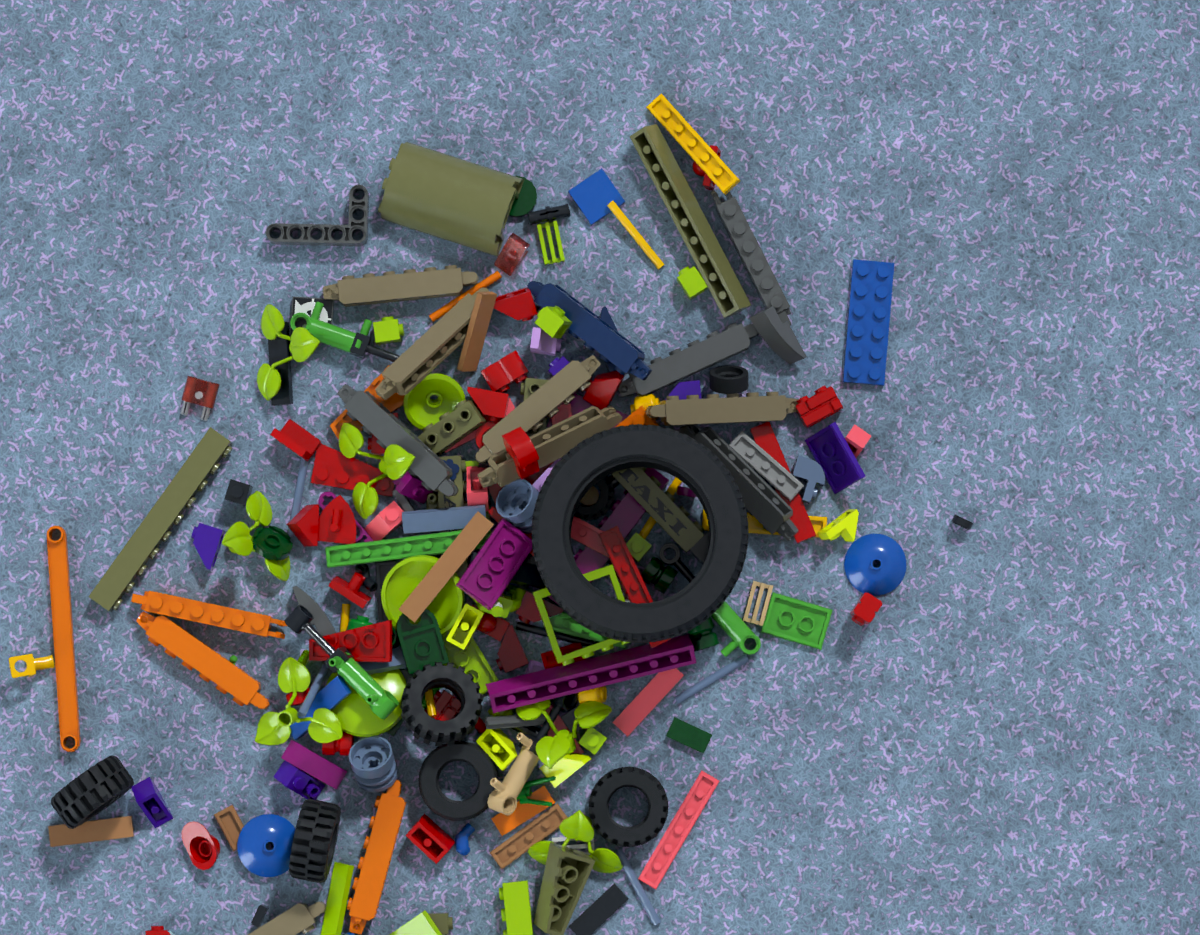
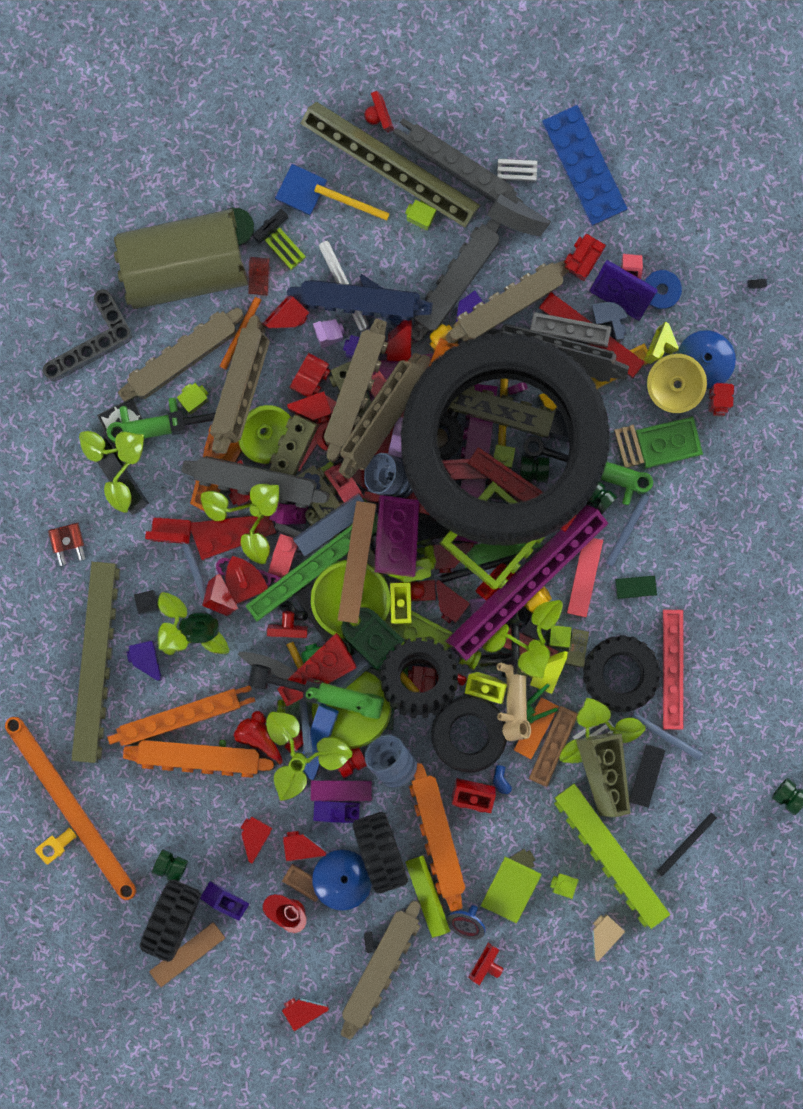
camera: 30 degrees left, 0 degrees up
(121, 743) = (169, 866): none -> dark green wheel
(212, 760) = (254, 837): none -> red slope
(248, 794) = (300, 847): none -> red slope
(266, 666) = (255, 734): none -> red hair
(476, 331) = (267, 355): medium nougat tile -> none
(512, 721) = (484, 659): dark grey axle -> none
(522, 451) = (365, 429): red brick -> none
(553, 321) = (326, 309): lime brick -> none
(585, 298) = (340, 277): none -> white axle
(602, 759) = (577, 648): none -> olive leg
(693, 144) = (356, 100): yellow tile -> none
(728, 379) = (498, 276): black tyre -> none
(789, 282) = (513, 169): none -> white tile
(819, 568) = (672, 369): none -> light yellow dish
(884, 482) = (674, 287): none -> blue tile

